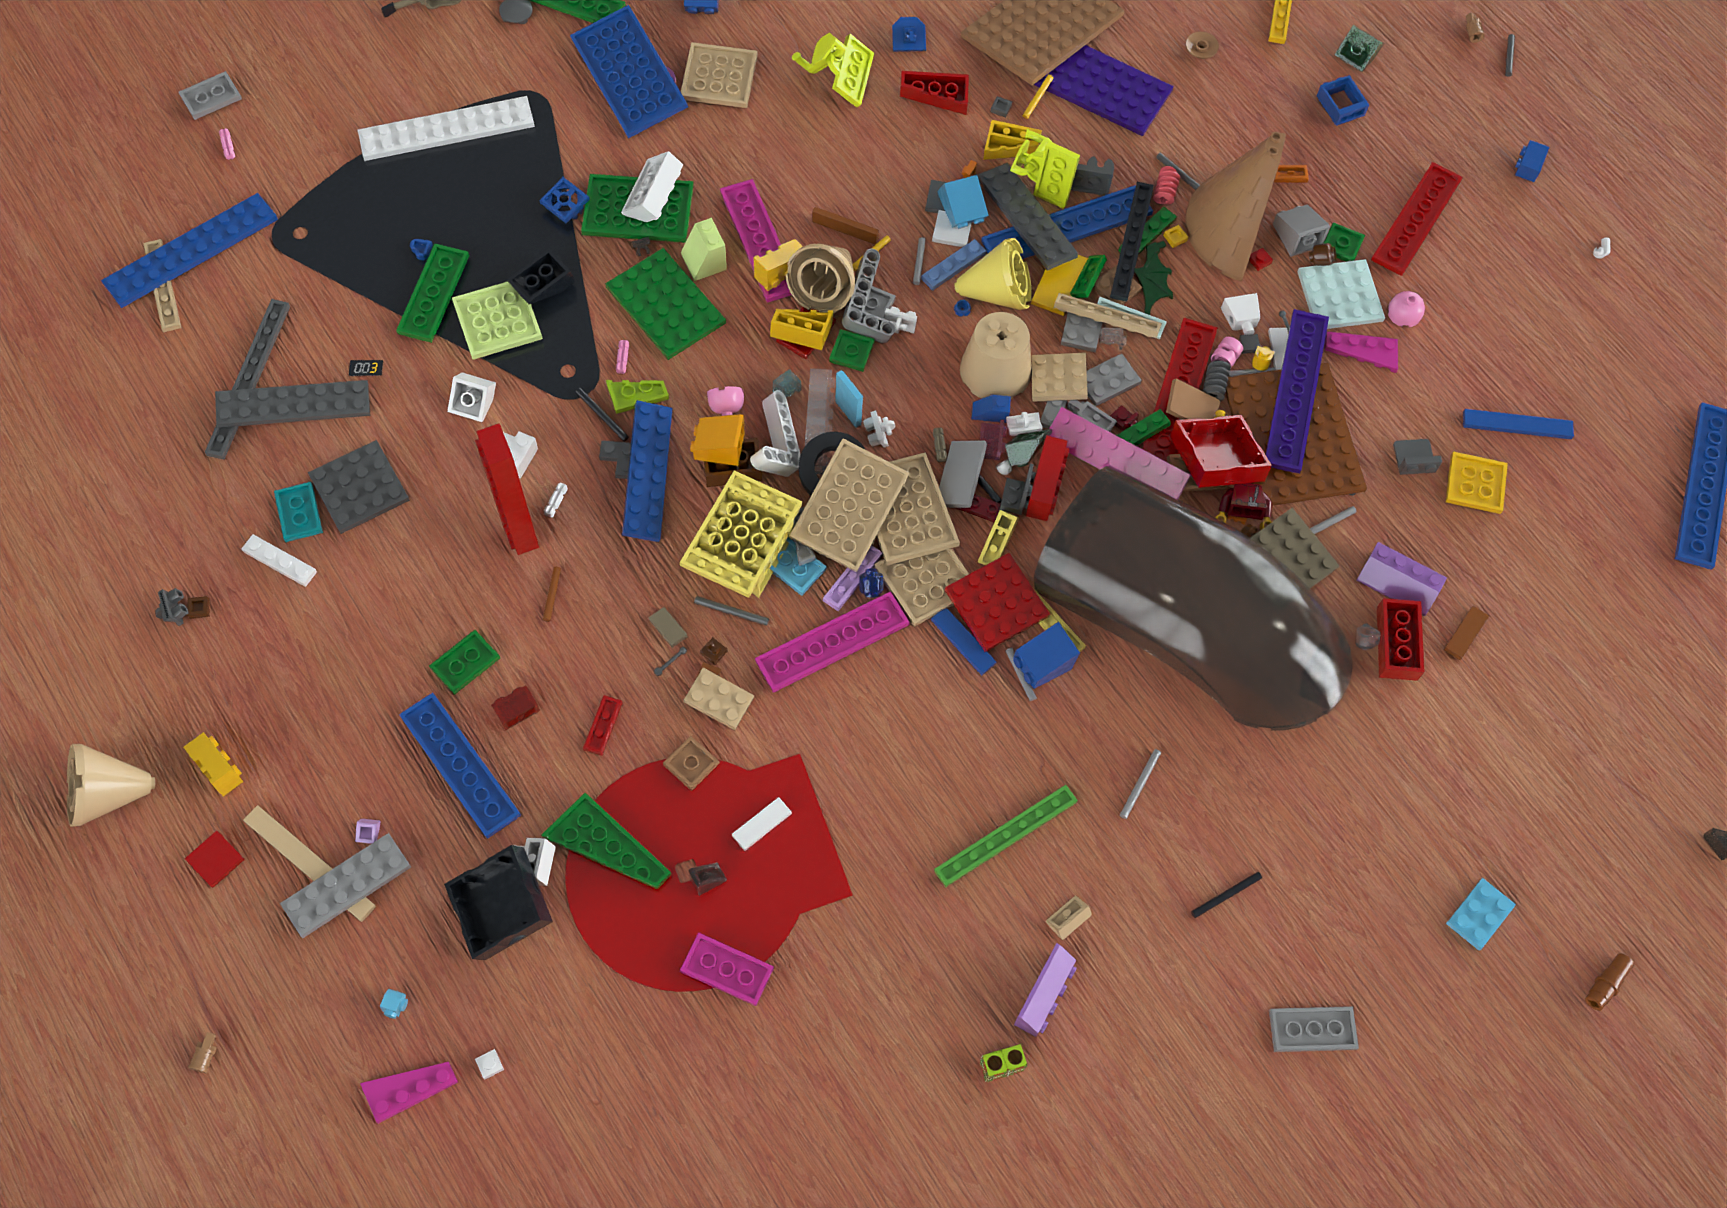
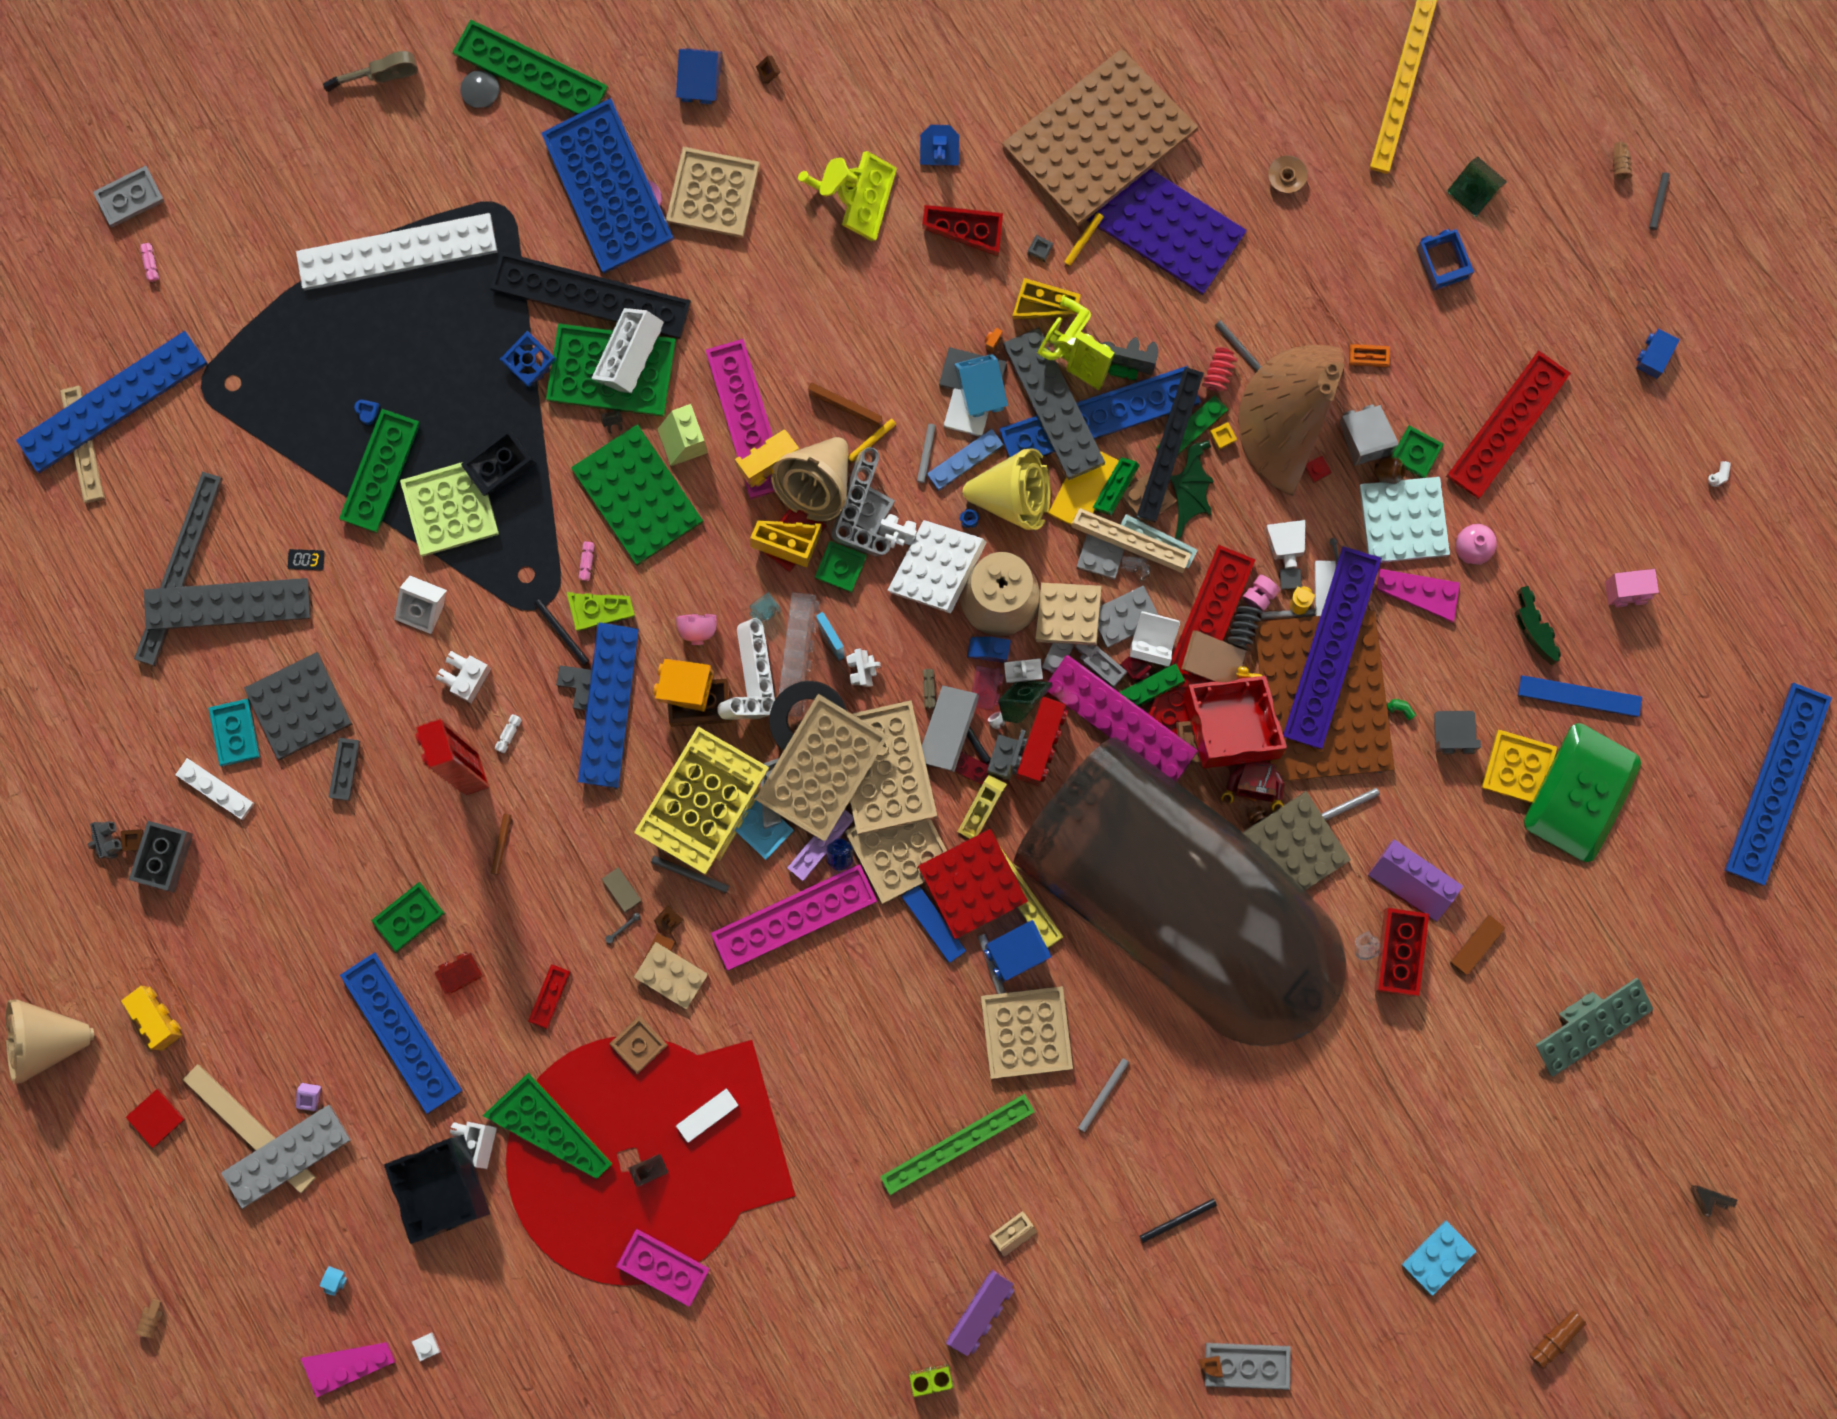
camera: 10 degrees right, 15 degrees up
(225, 617) = (161, 856): none -> dark grey brick
(402, 536) = (344, 769): none -> dark grey plate
(609, 150) = (585, 292): none -> black plate
(939, 340) = (937, 566): none -> white plate
(1061, 731) = (1026, 1032): none -> tan plate
(1083, 192) = (1122, 372): none -> green axle
(1138, 390) = (1154, 638): none -> white bracket
(1279, 1029) = (1211, 1366): none -> dark orange tile
(1366, 439) = (1401, 705): none -> green arm
(1471, 374) = (1537, 634): none -> dark green slope
(1536, 500) = (1582, 792): none -> green wedge
(1547, 332) = (1631, 587): none -> bright pink brick
(1585, 693) = (1592, 1023): none -> sand green bracket

